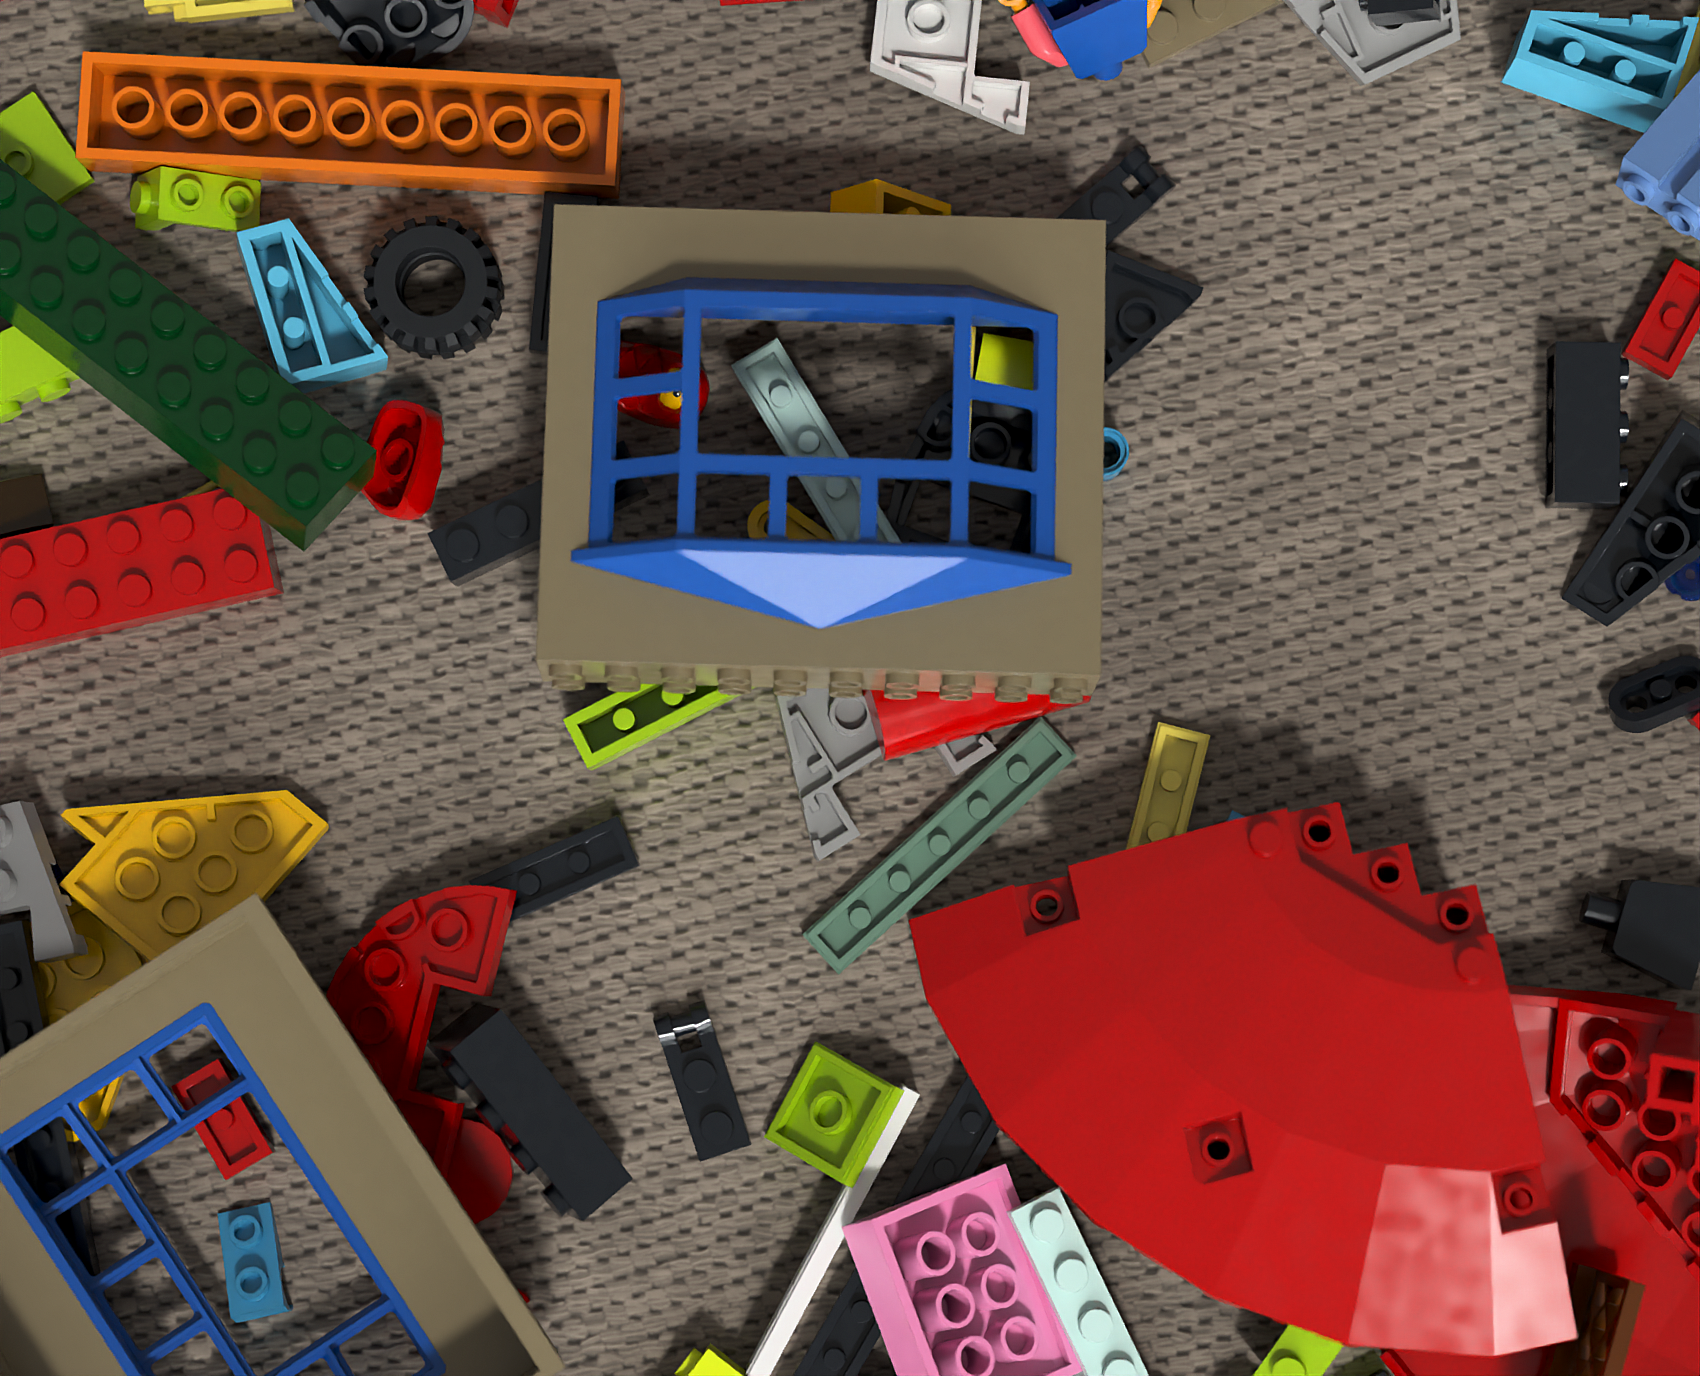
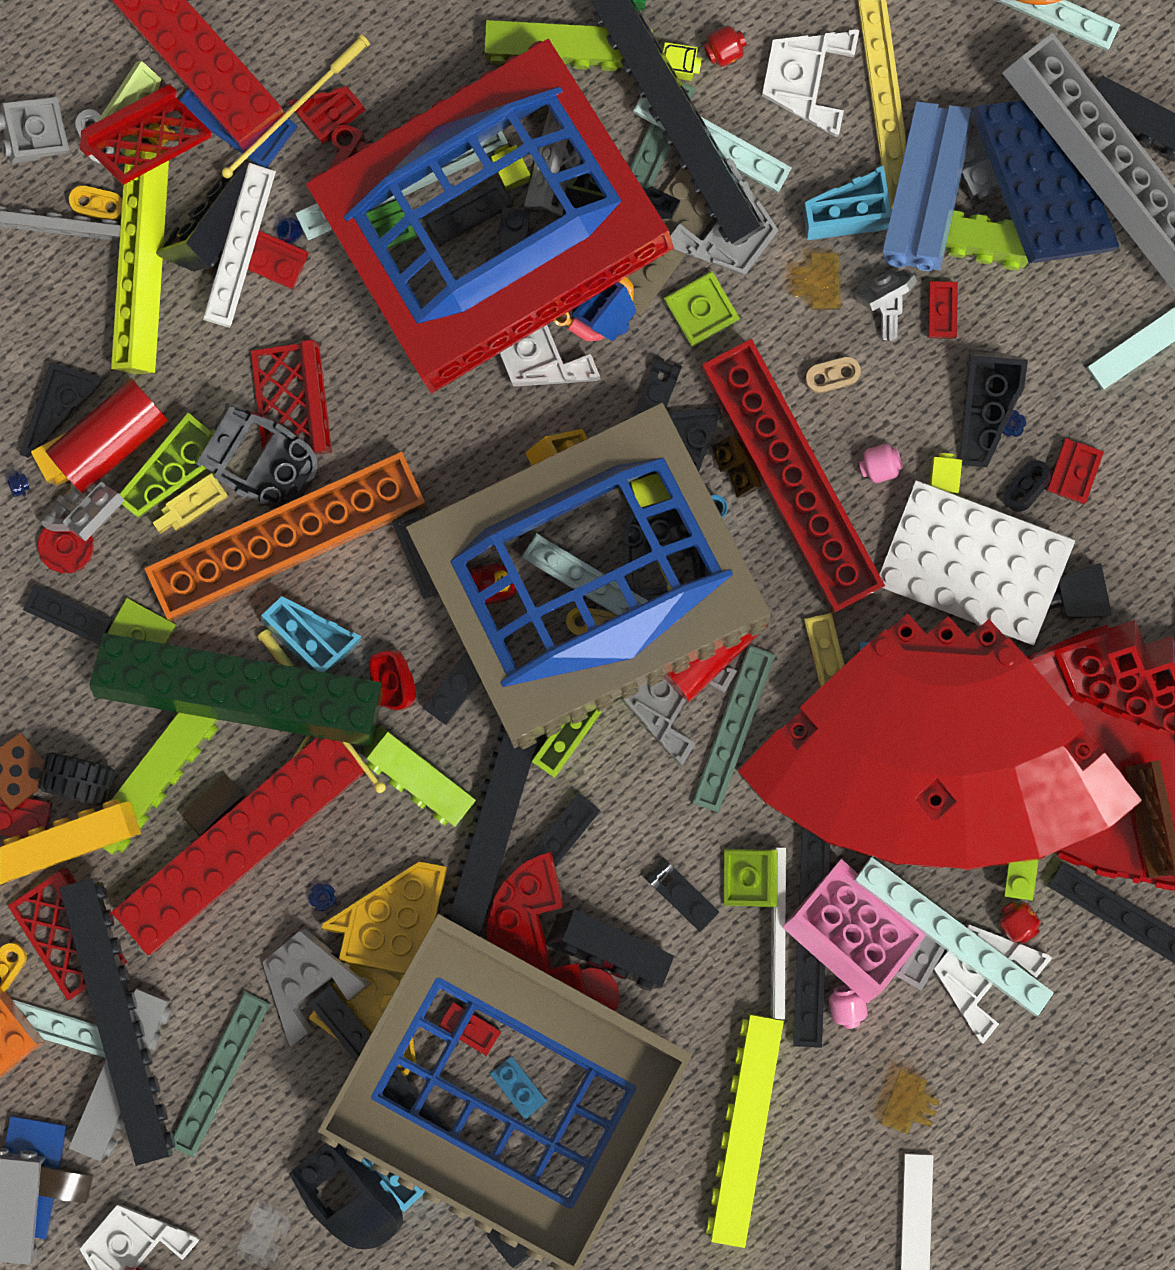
camera: 35 degrees left, 0 degrees up
(104, 775) = (314, 897): none -> clear blue plate
(194, 199) = (230, 610): lime bracket -> none
(238, 328) = (282, 659): none -> light yellow piece
(357, 646) = (418, 777): none -> lime wedge
(406, 252) = (364, 617): black tyre -> none
(426, 814) = (491, 834): none -> black brick
(1181, 390) = (733, 459): none -> dark brown slope
(1259, 105) = (701, 309): none -> lime plate
(1264, 467) = (792, 476): none -> red brick
(1424, 329) = (832, 375): none -> tan plate
(1428, 525) = (881, 463): none -> bright pink head
(1486, 163) = (820, 281): none -> clear yellow hinge
(1502, 776) = (975, 562): none -> white plate
(1528, 602) = (946, 473): none -> neon yellow brick
(1585, 251) = (886, 297): none -> light grey piece
(1585, 425) = (928, 380): black brick -> none

